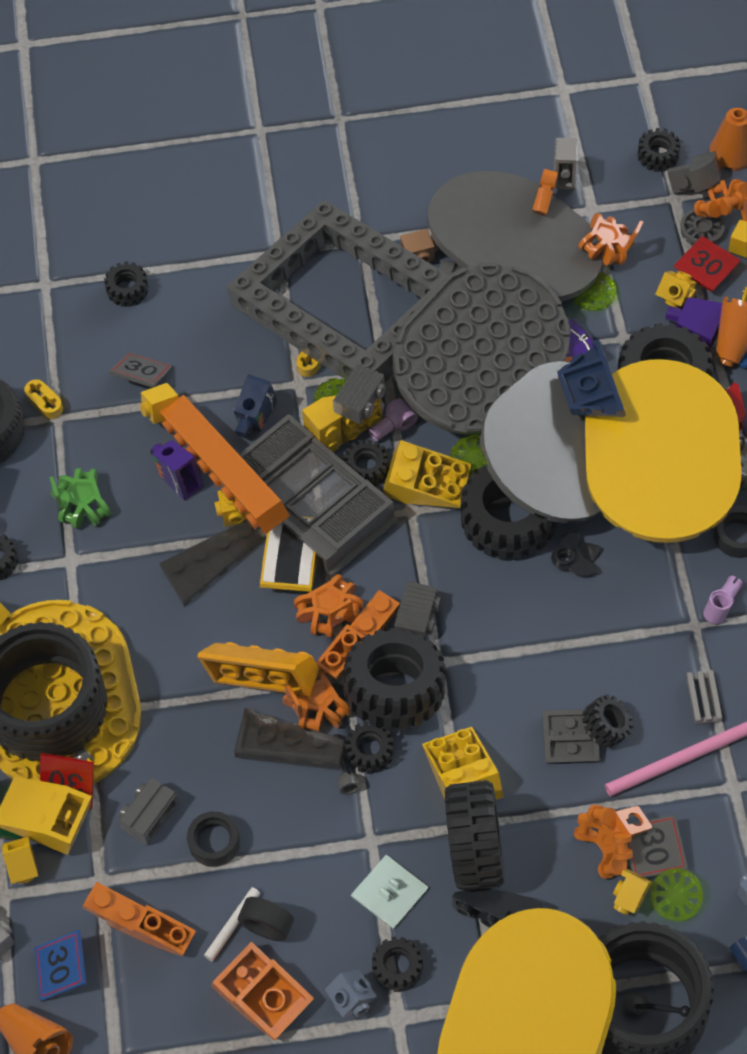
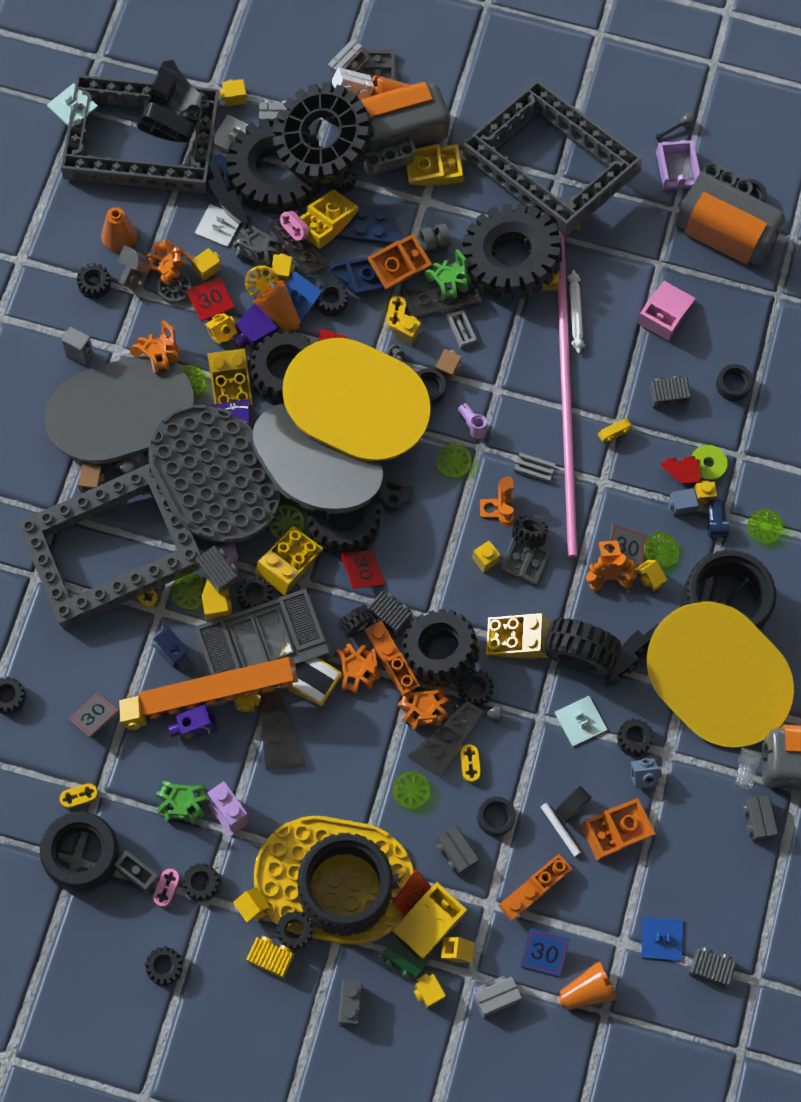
camera: 75 degrees left, 10 degrees up
(78, 533) = (227, 809): none -> lavender window
(204, 730) = (411, 790): none -> clear neon green wheel
(259, 667) = (389, 731): light orange slope -> none
(269, 782) = (465, 764): none -> yellow beam
(383, 575) = (355, 621): none -> black tyre
(456, 559) = (362, 569): none -> red piece
(545, 193) = (92, 363): orange bar -> none
(548, 686) = (486, 556): none -> yellow brick
(590, 385) = (288, 417): dark blue wing -> none
(621, 318) = (229, 376): none -> yellow slope
(625, 668) = (505, 512): none -> orange piece
(658, 602) = (453, 461): none -> clear neon green wheel

